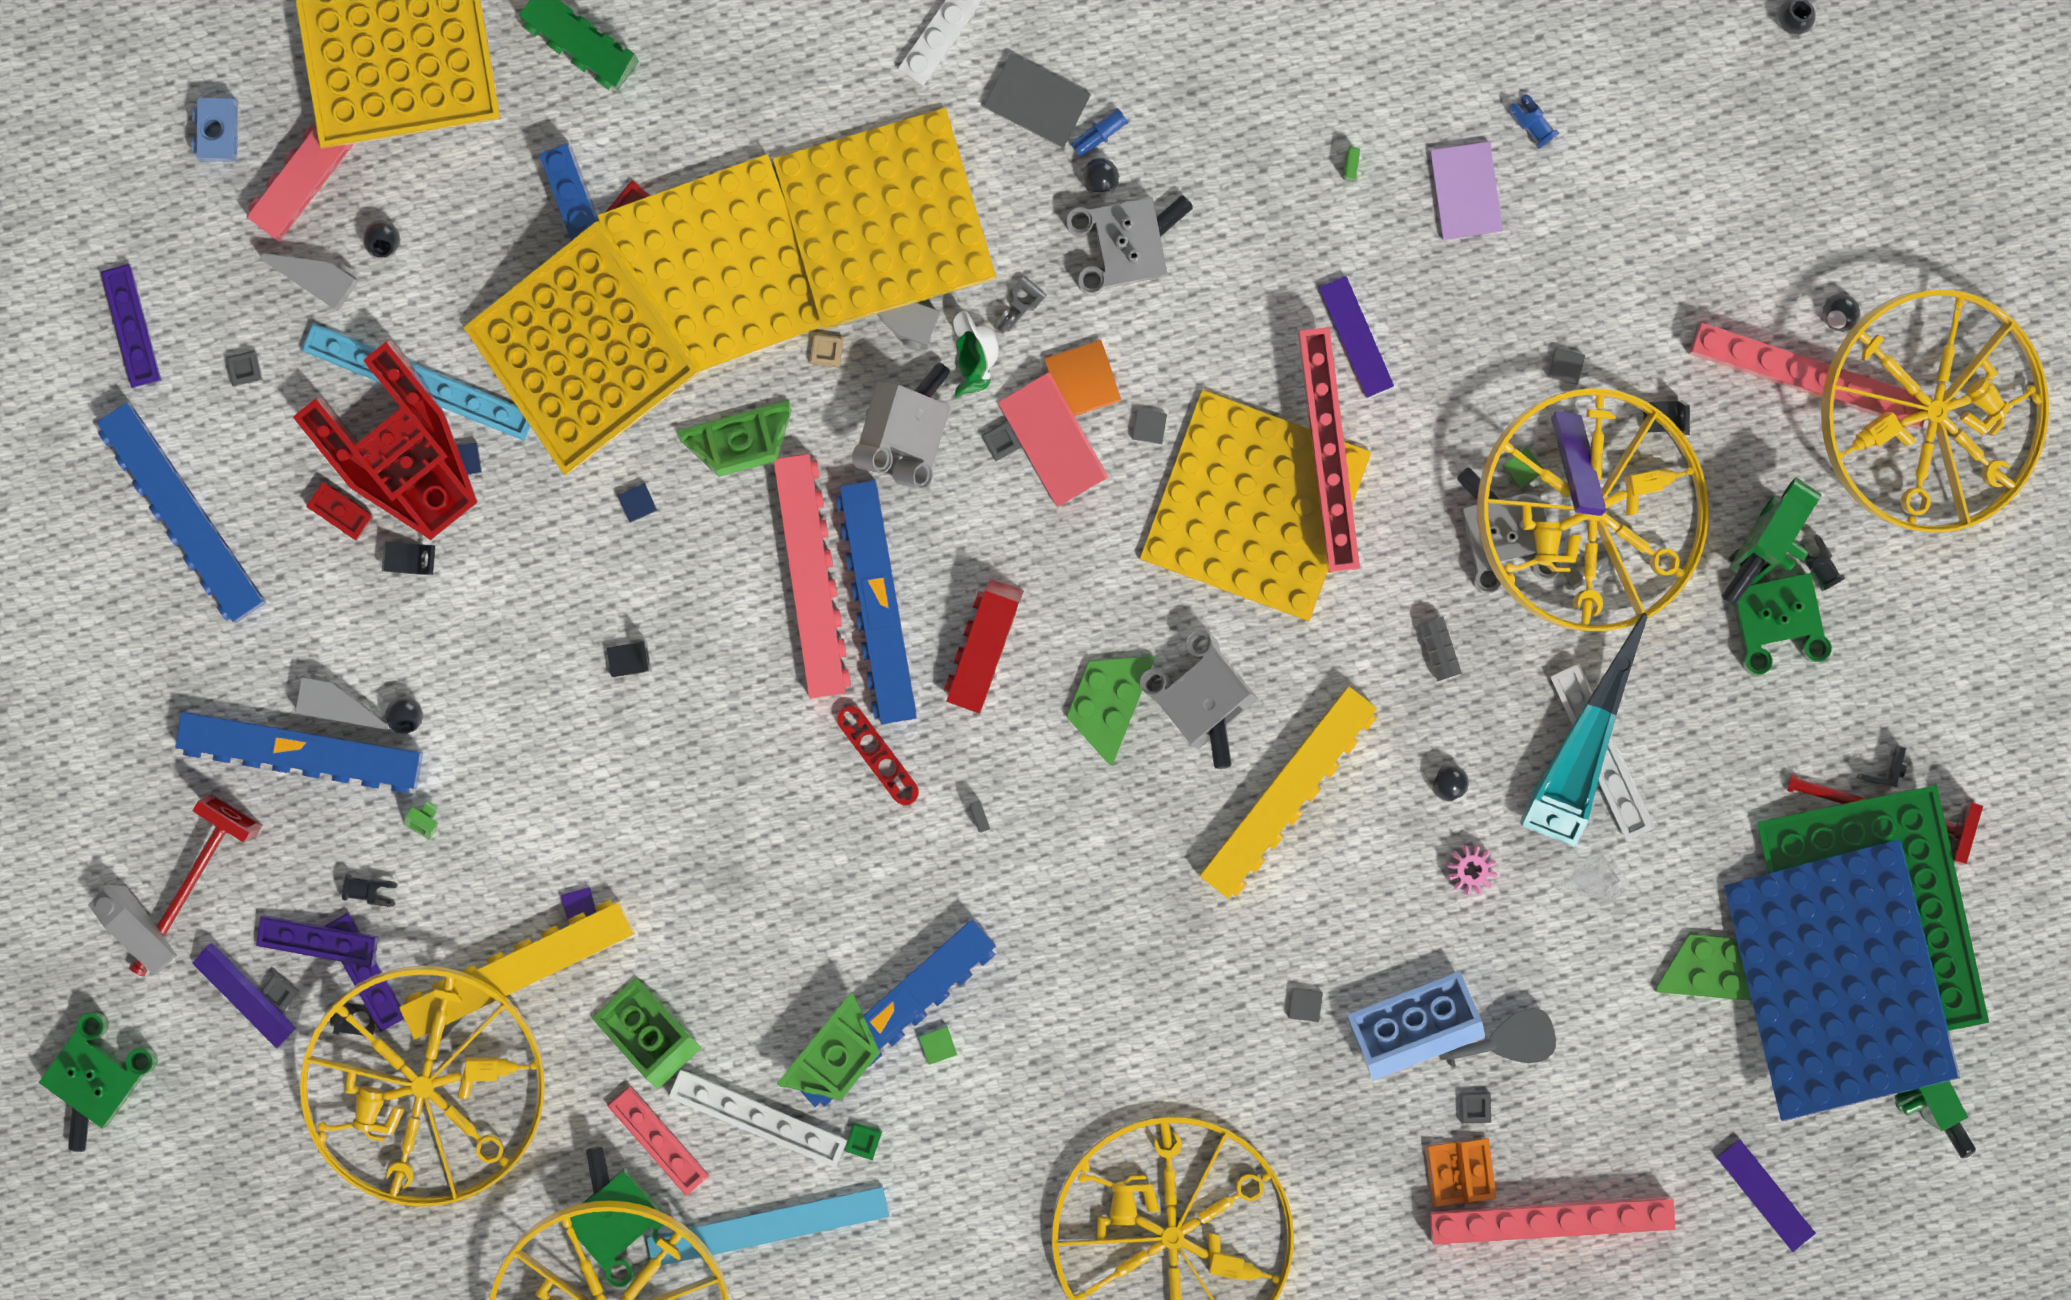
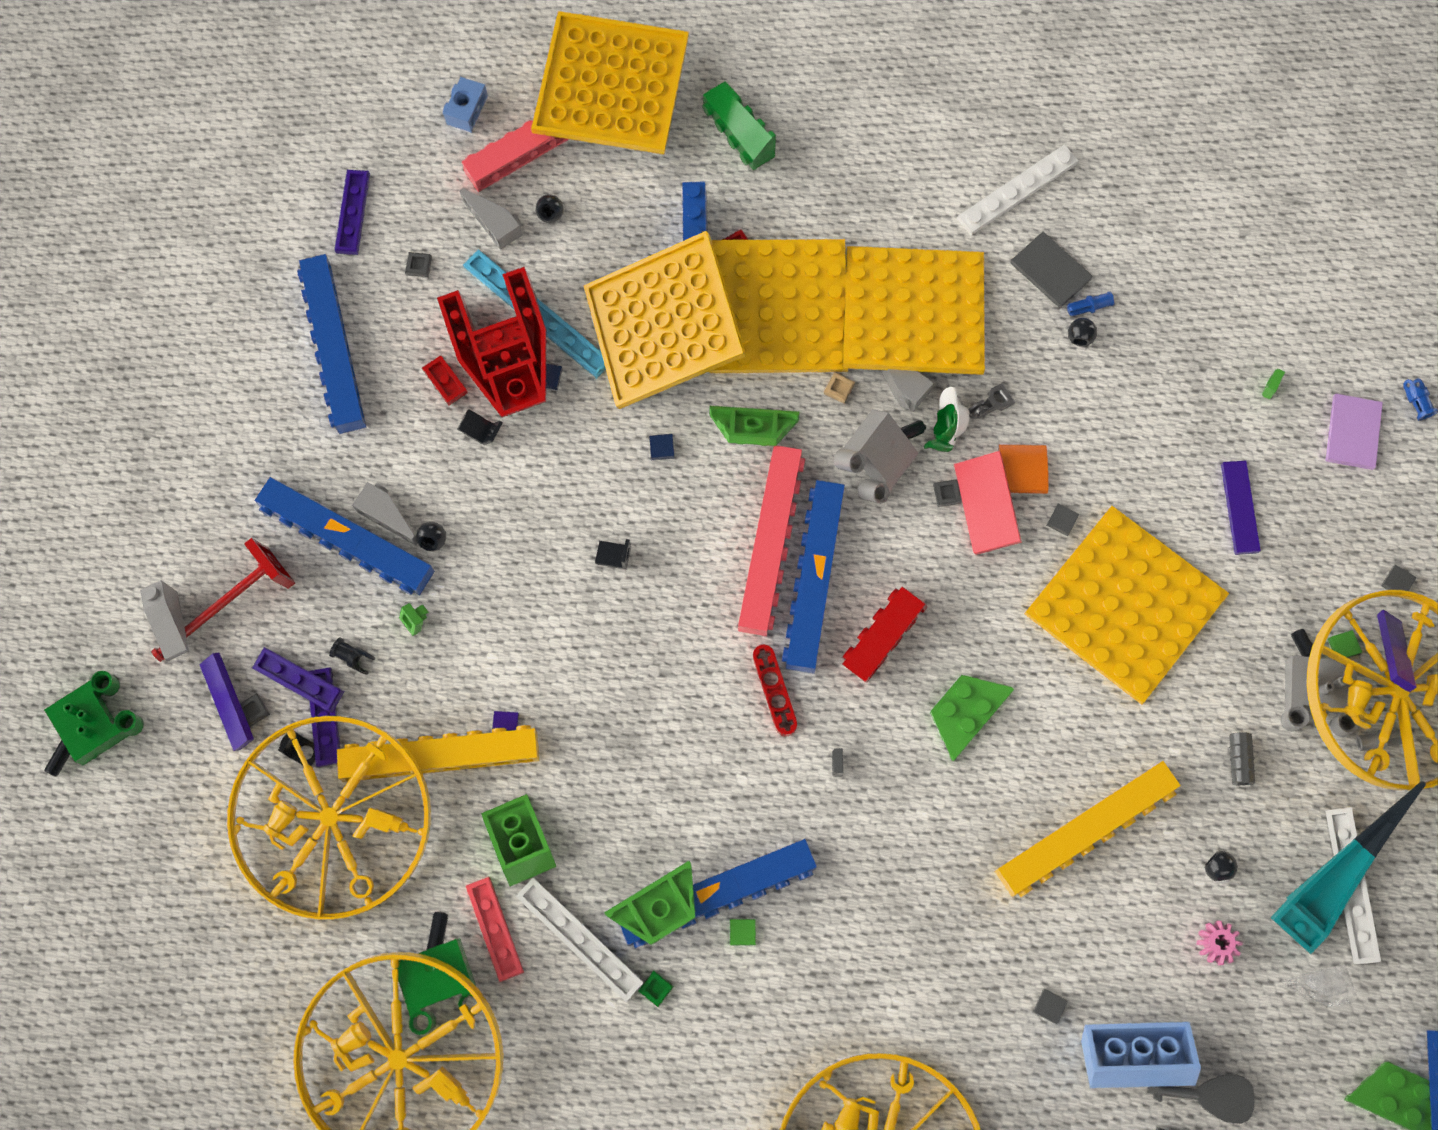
camera: 25 degrees right, 15 degrees down
(780, 1224) = (564, 1033): medium azure tile -> none
(1128, 240) = (1088, 382): light grey piece -> none
(1203, 698) = (1045, 728): light grey piece -> none
(1328, 450) = (1200, 576): coral brick -> none

